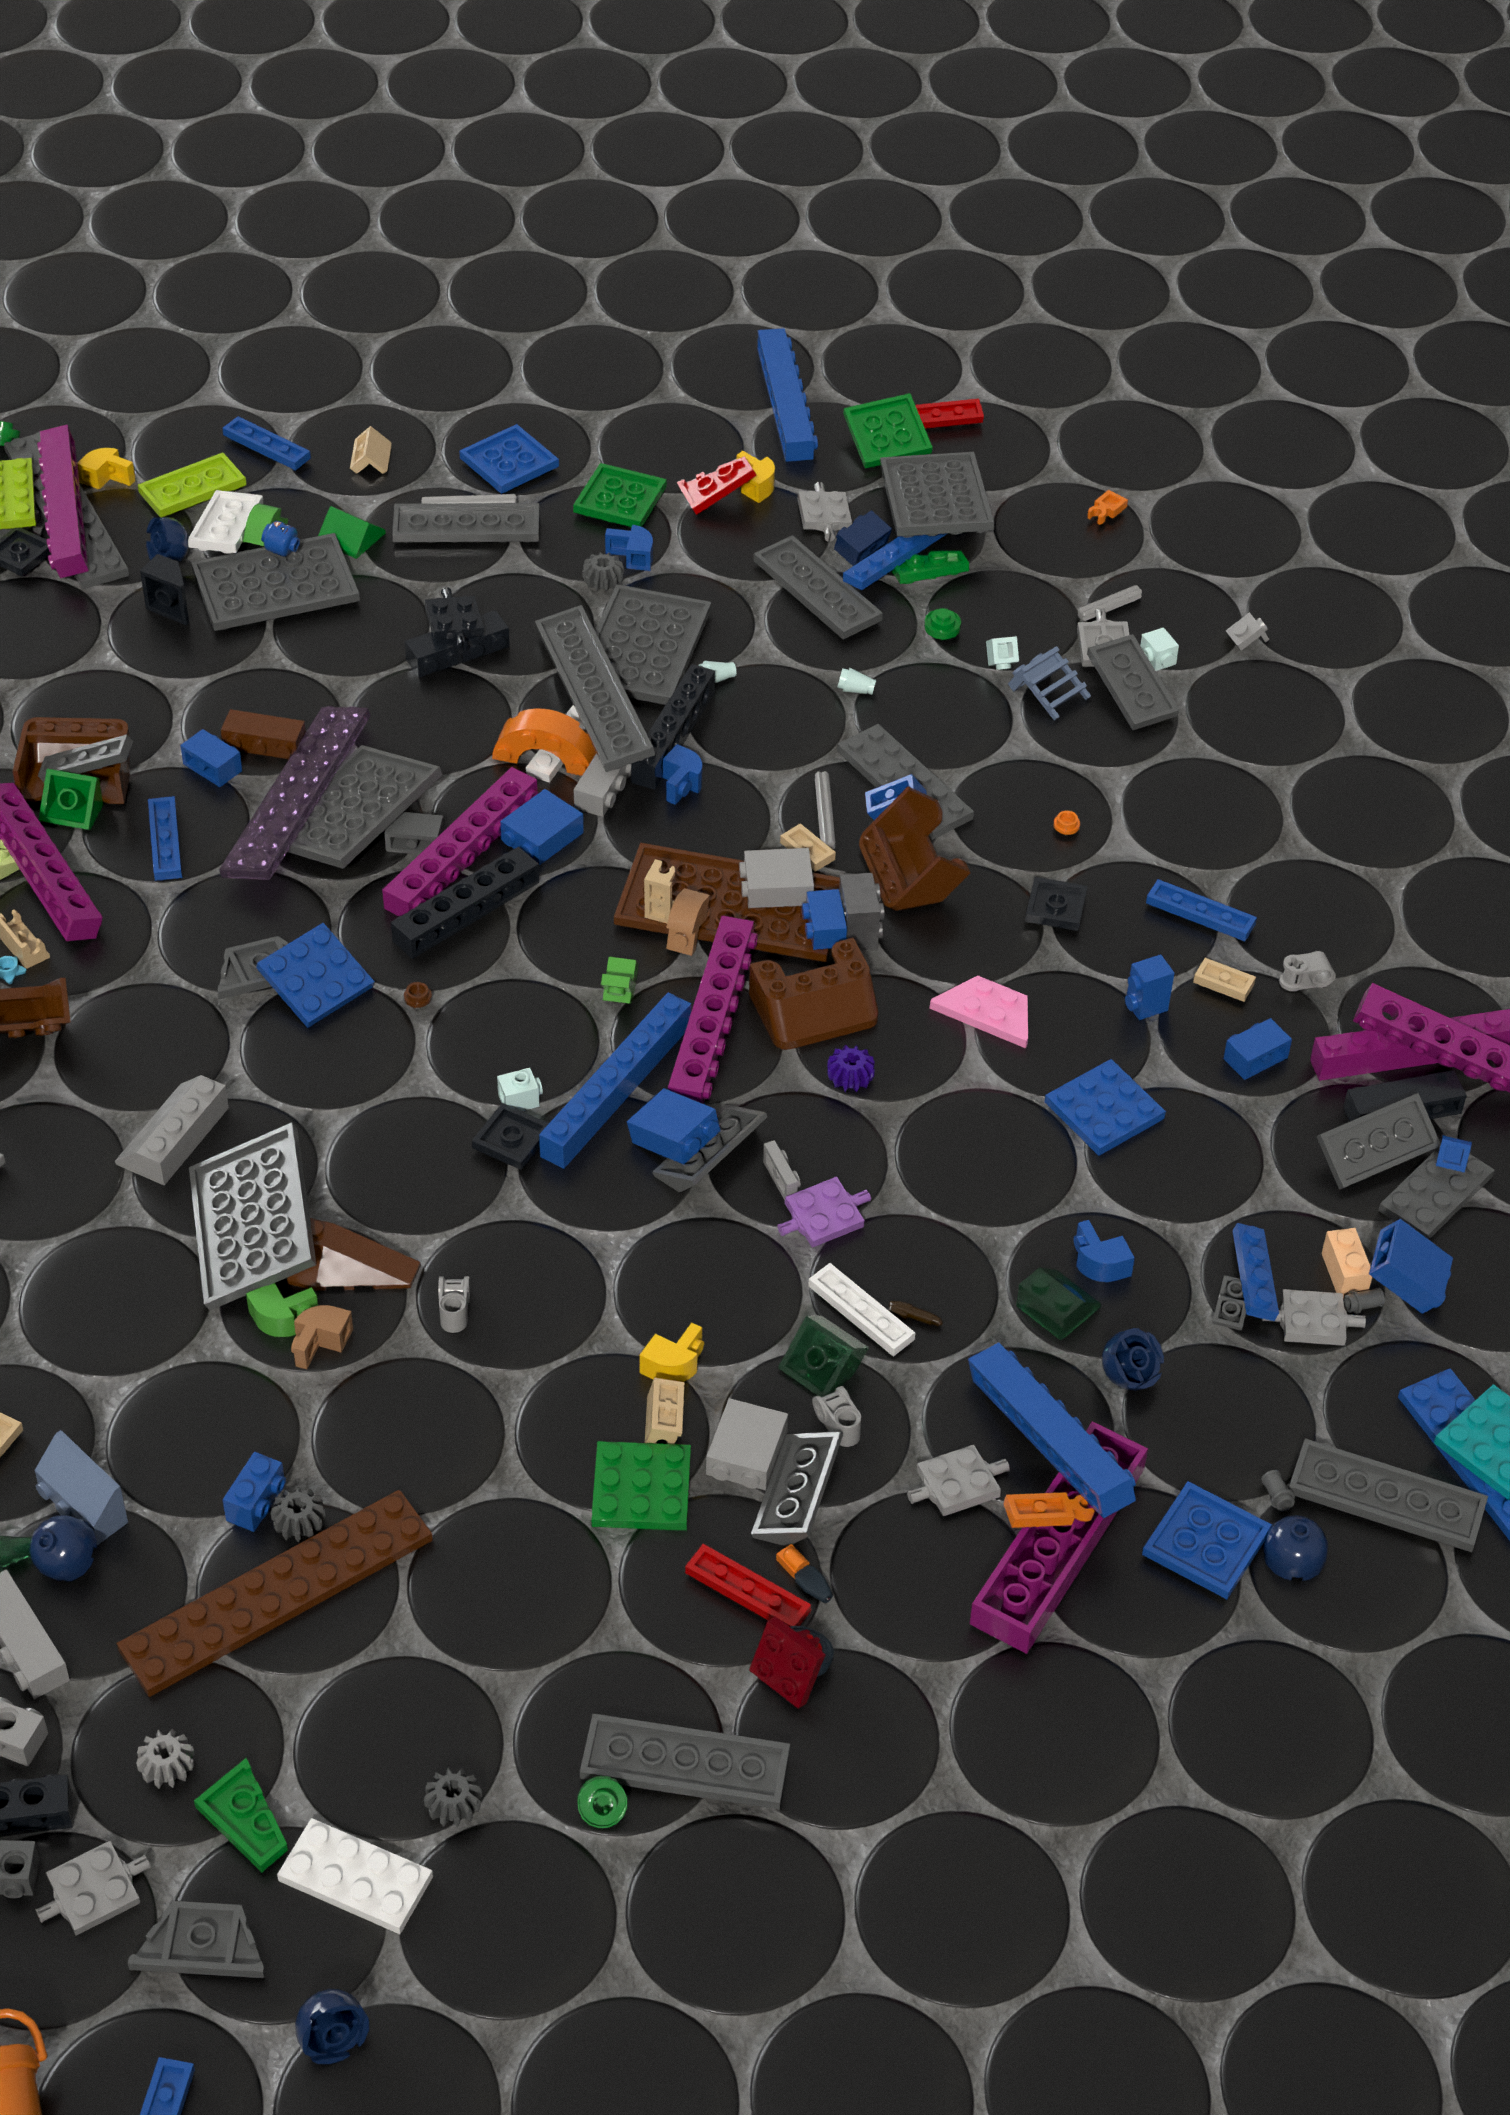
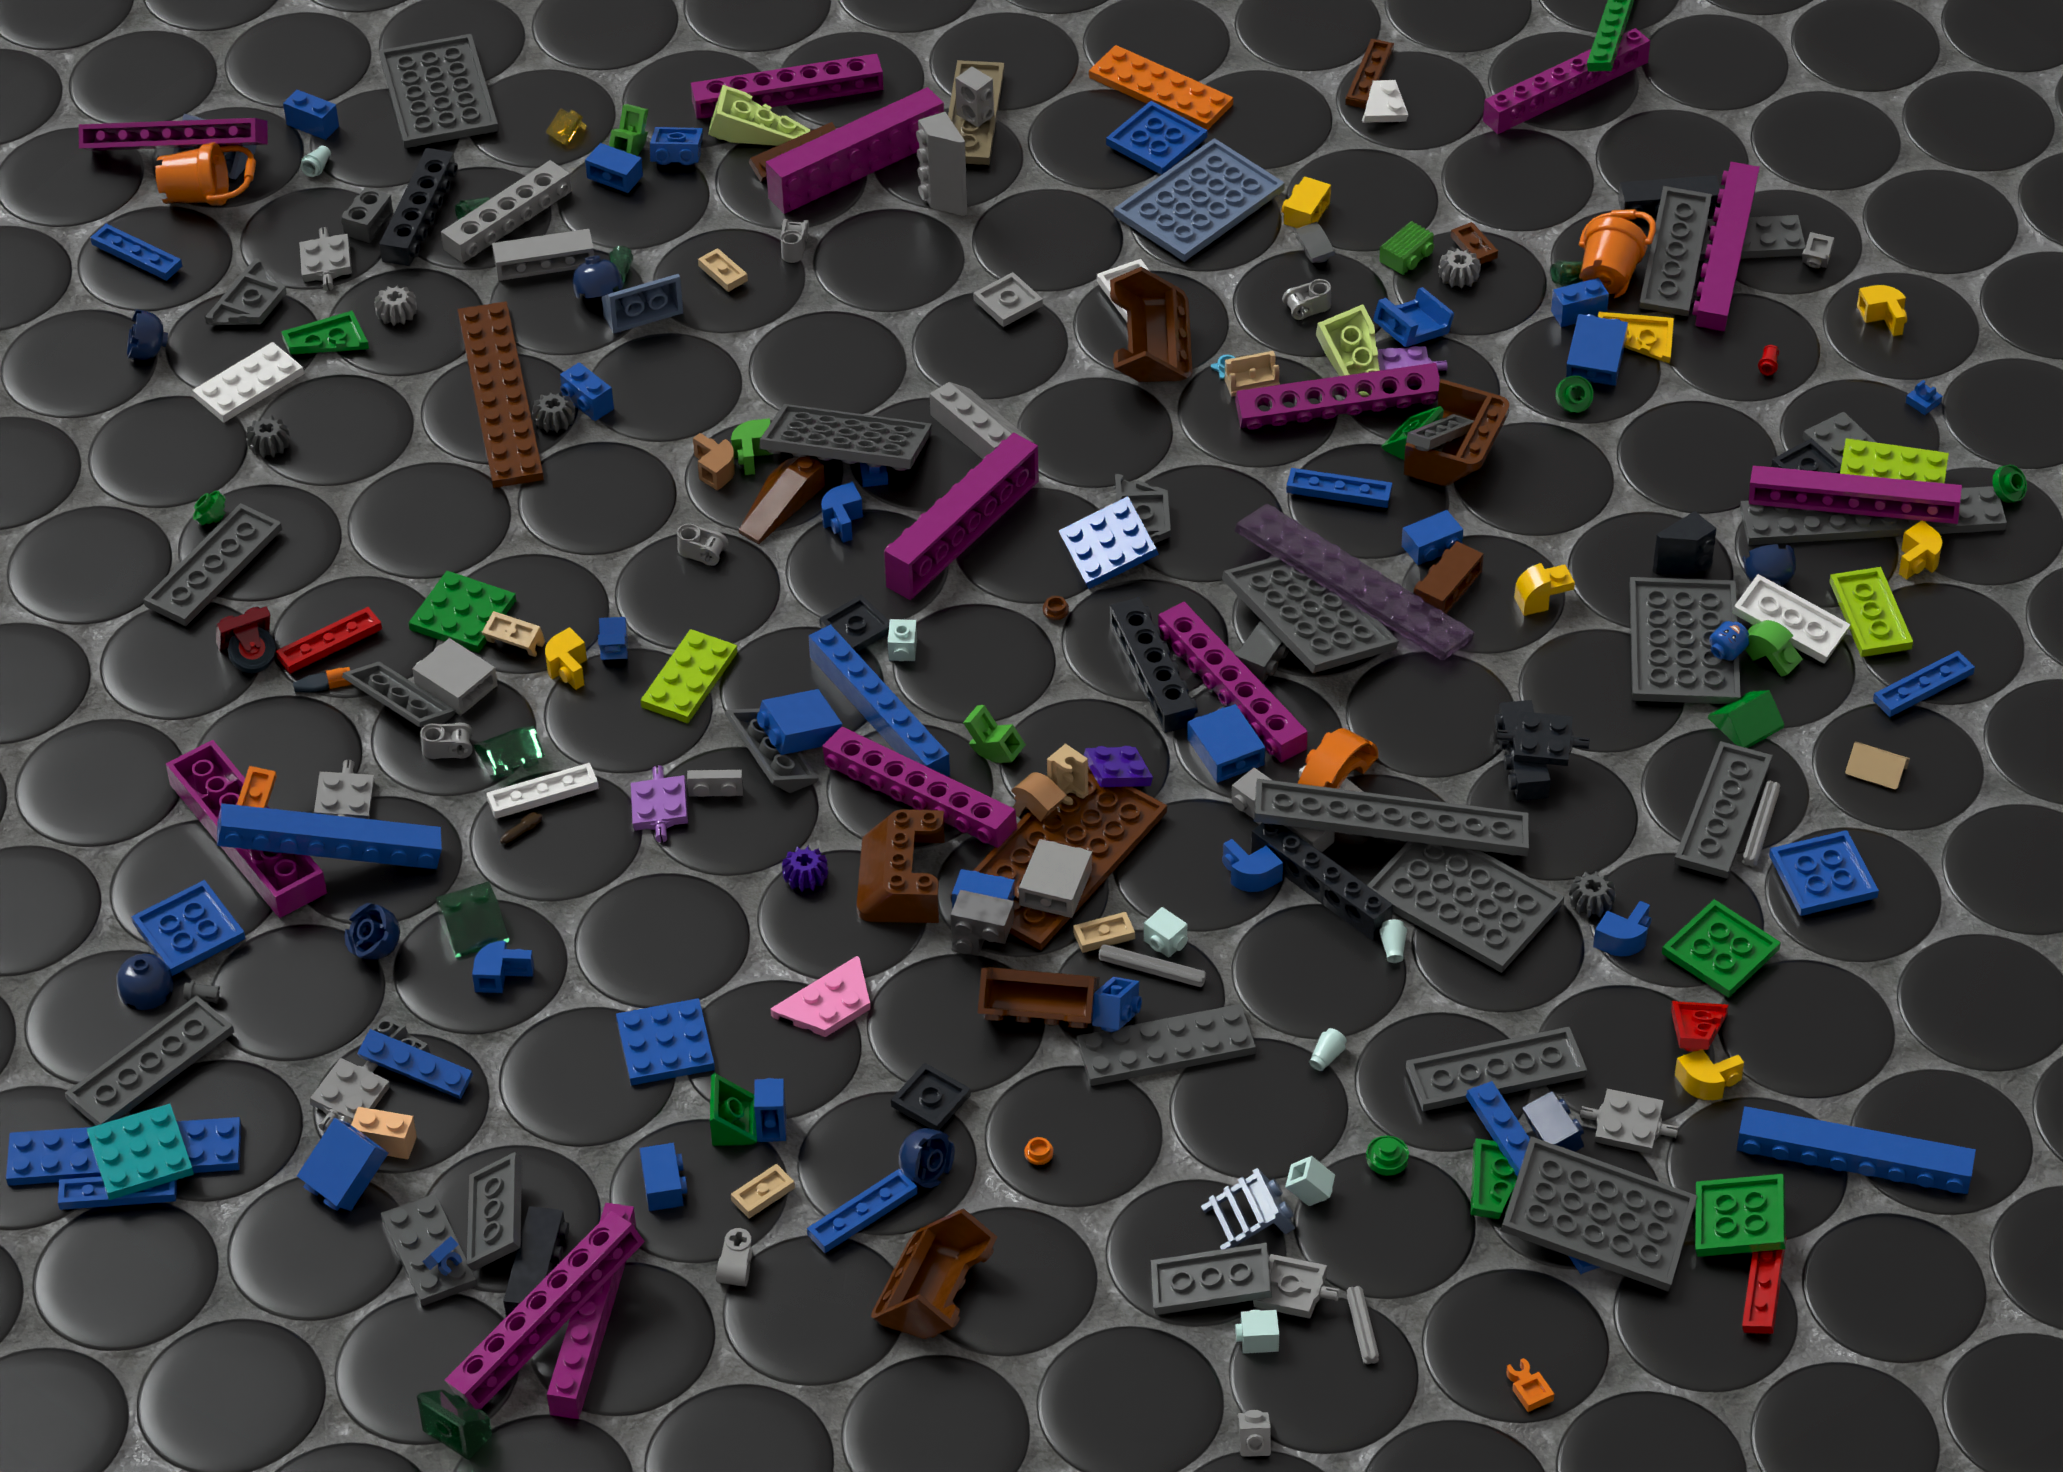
camera: 115 degrees right, 0 degrees up
(257, 670) = (1537, 585): none -> yellow brick
(333, 1085) = (961, 516): none -> magenta brick
(350, 1203) = (839, 508): none -> blue brick
(611, 885) = (1118, 766): none -> dark purple plate
(631, 1323) = (613, 638): none -> blue brick
(641, 1251) = (689, 676): none -> lime plate
(788, 806) = (1165, 932): none -> light aqua brick
(1128, 879) = (926, 1156): none -> dark blue cylinder
(1162, 1029) = (731, 1113): none -> green slope
(1249, 846) = (930, 1275): none -> reddish brown windscreen

